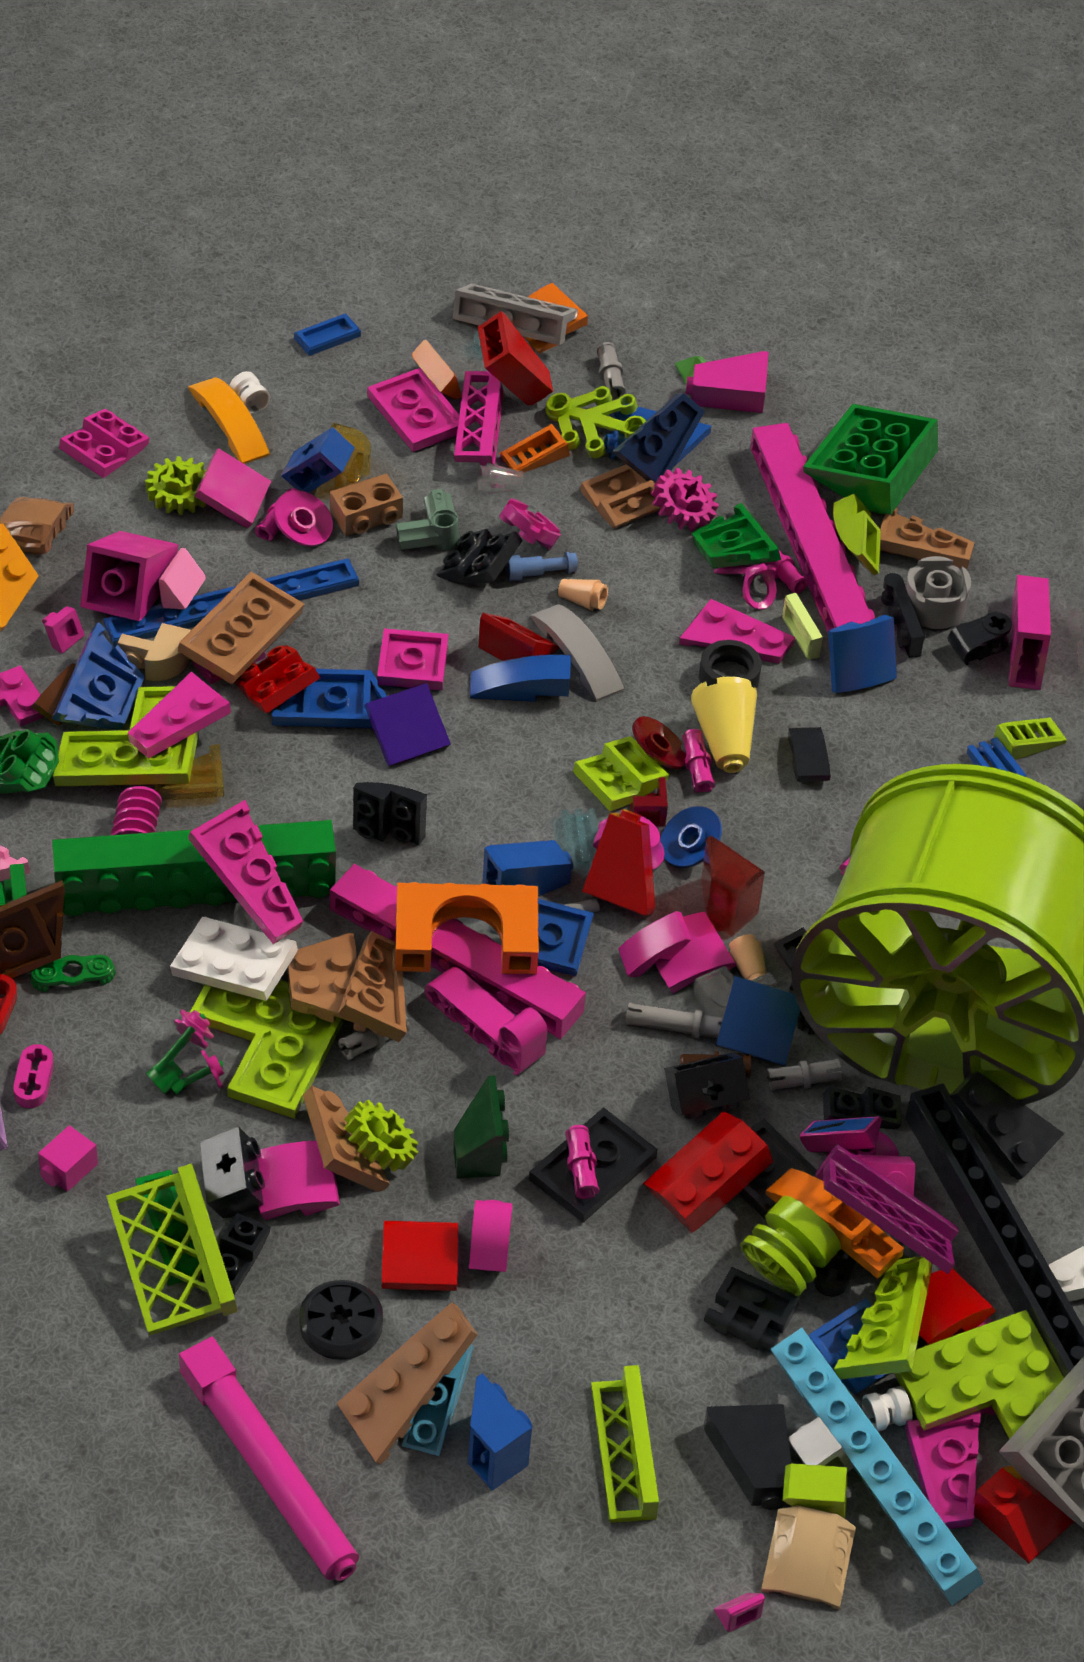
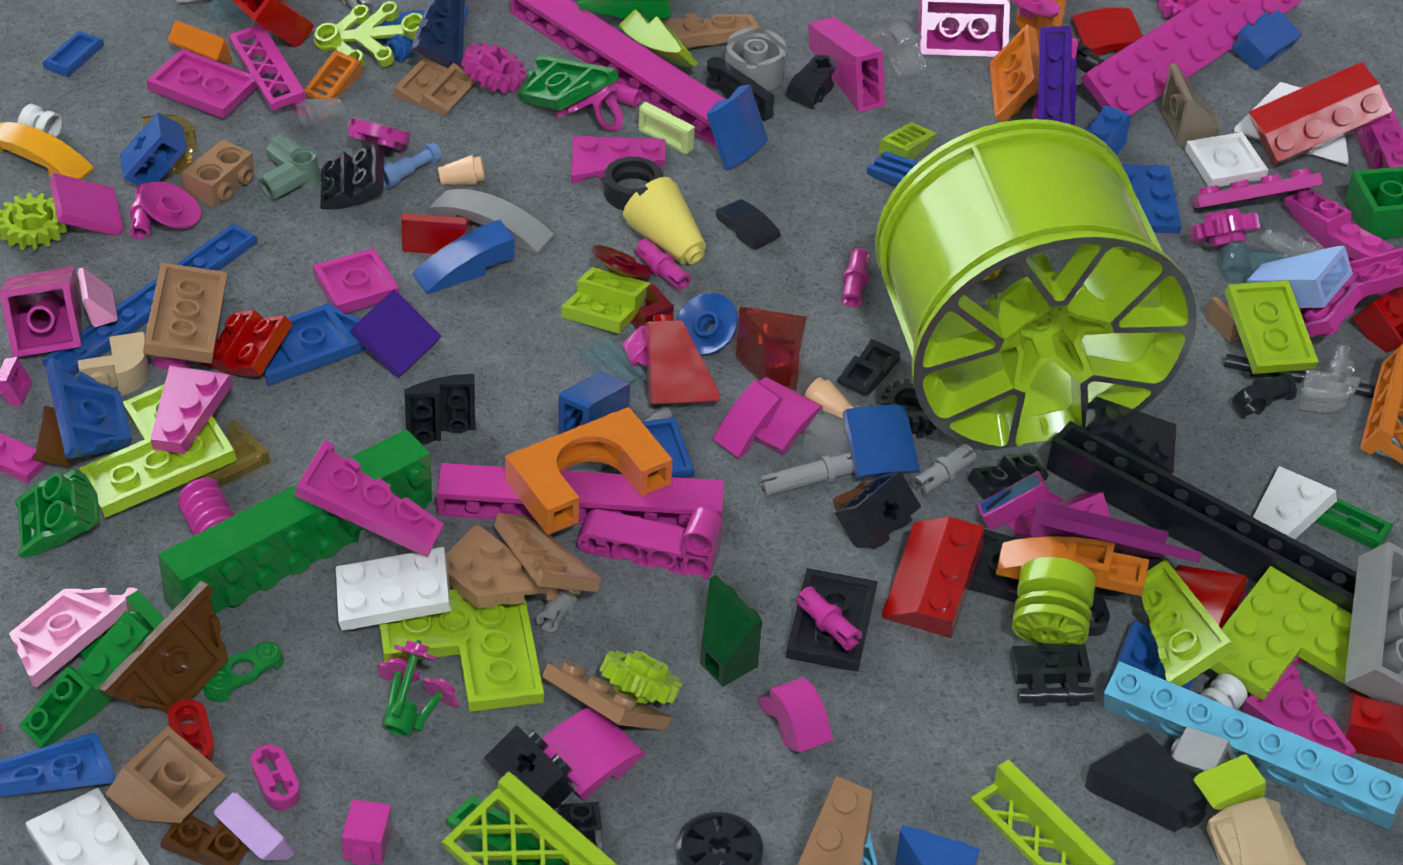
camera: 30 degrees left, 5 degrees down
(420, 1255) = (746, 764): red slope -> none

